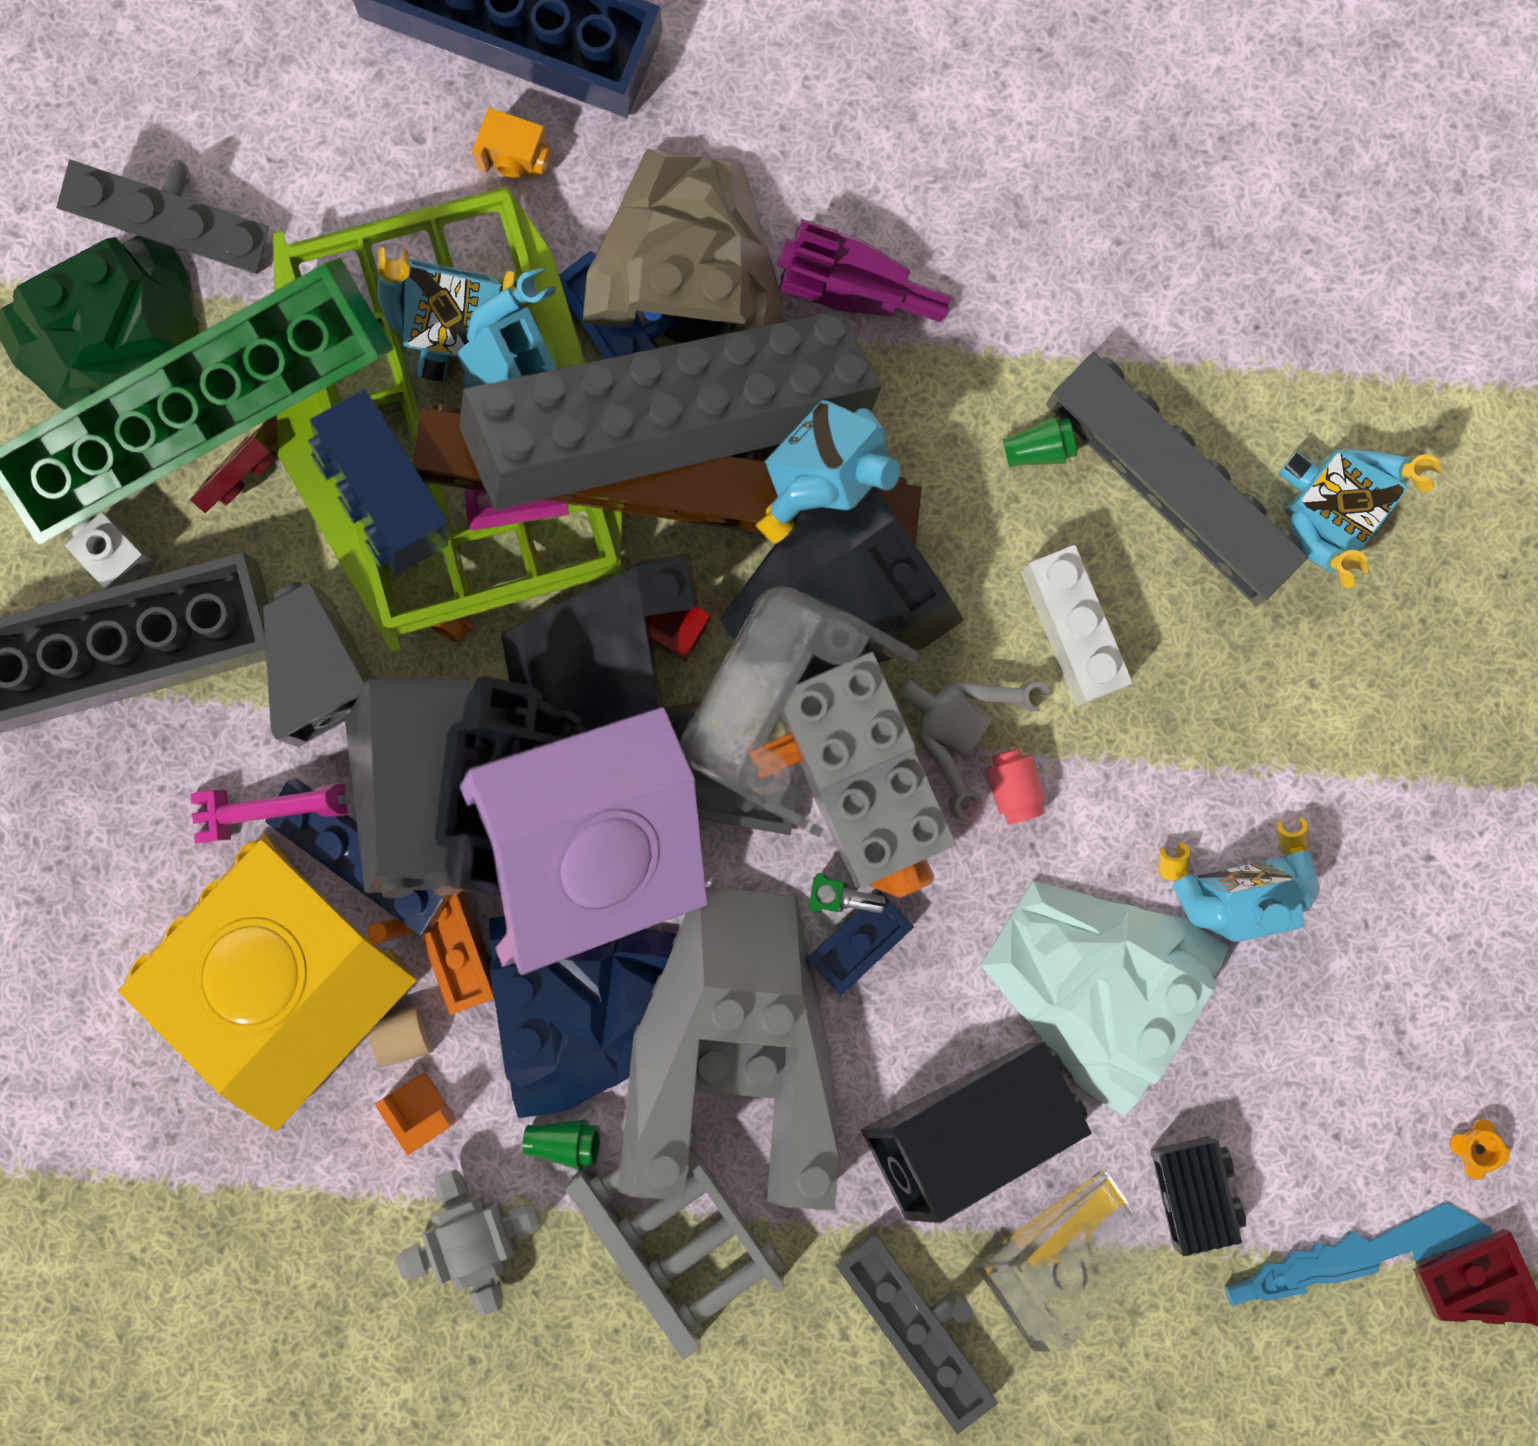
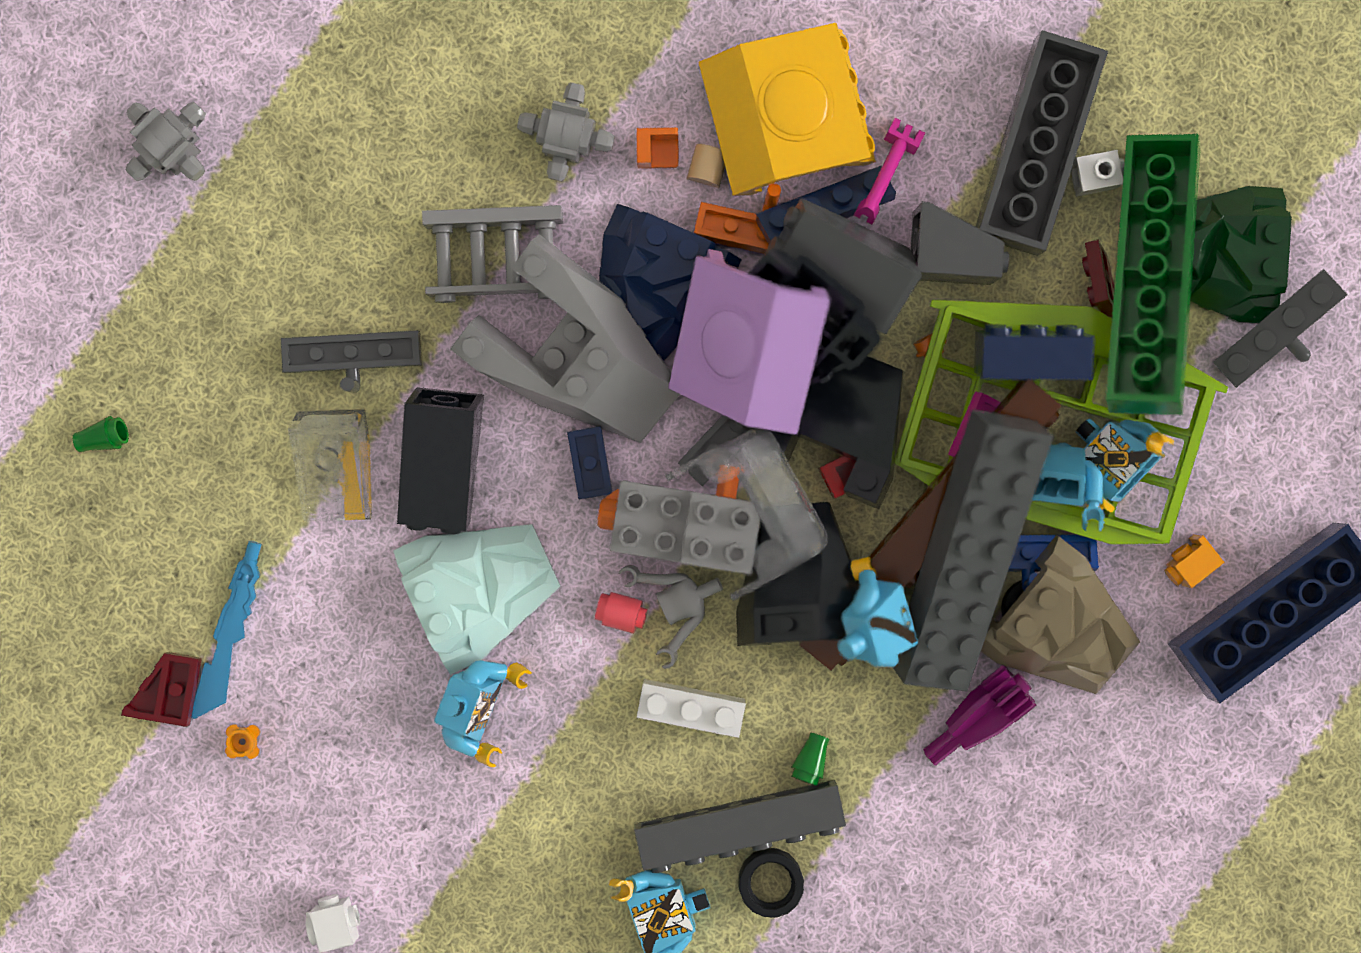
camera: 130 degrees right, 5 degrees up
(565, 1143) = (585, 221): green cone -> none
(834, 896) = (625, 466): piece -> none
(1198, 1195) = (322, 562): black brick -> none
(1242, 371) = (771, 909): none -> black tyre

